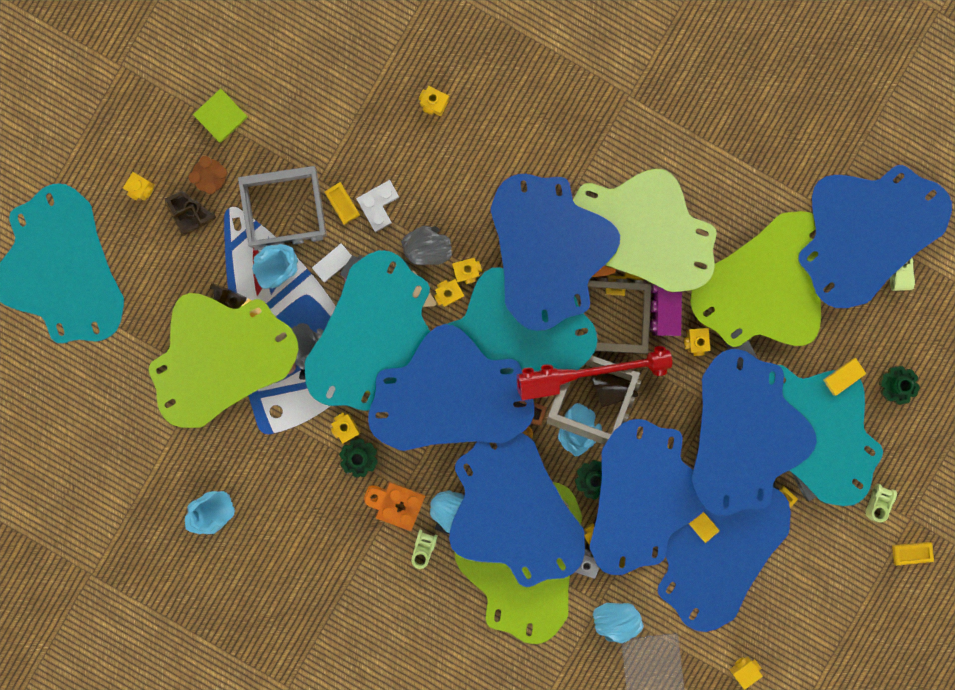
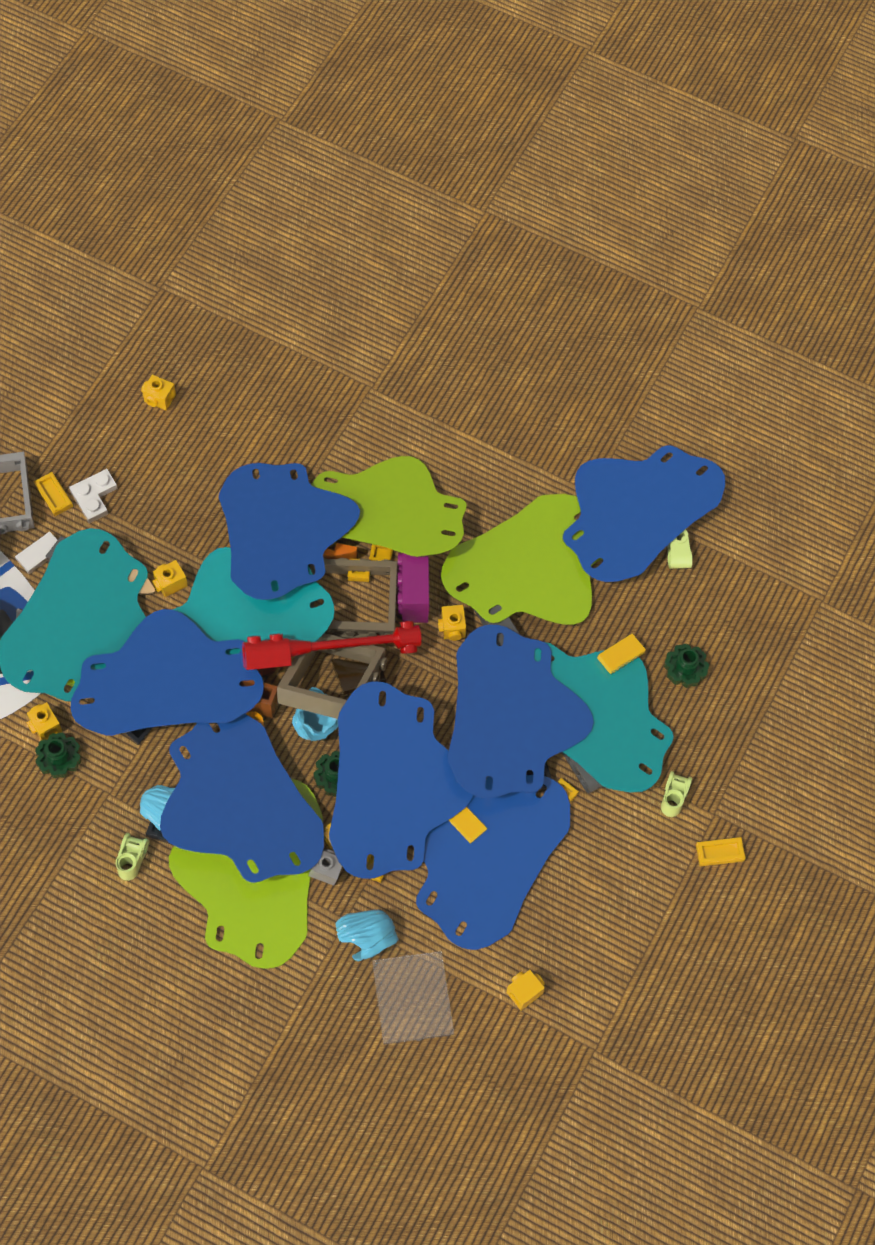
camera: 10 degrees left, 25 degrees down
(388, 498) = (89, 800): orange plate -> none
(426, 246) = (146, 531): dark grey hair -> none
(467, 270) = (190, 554): yellow brick -> none

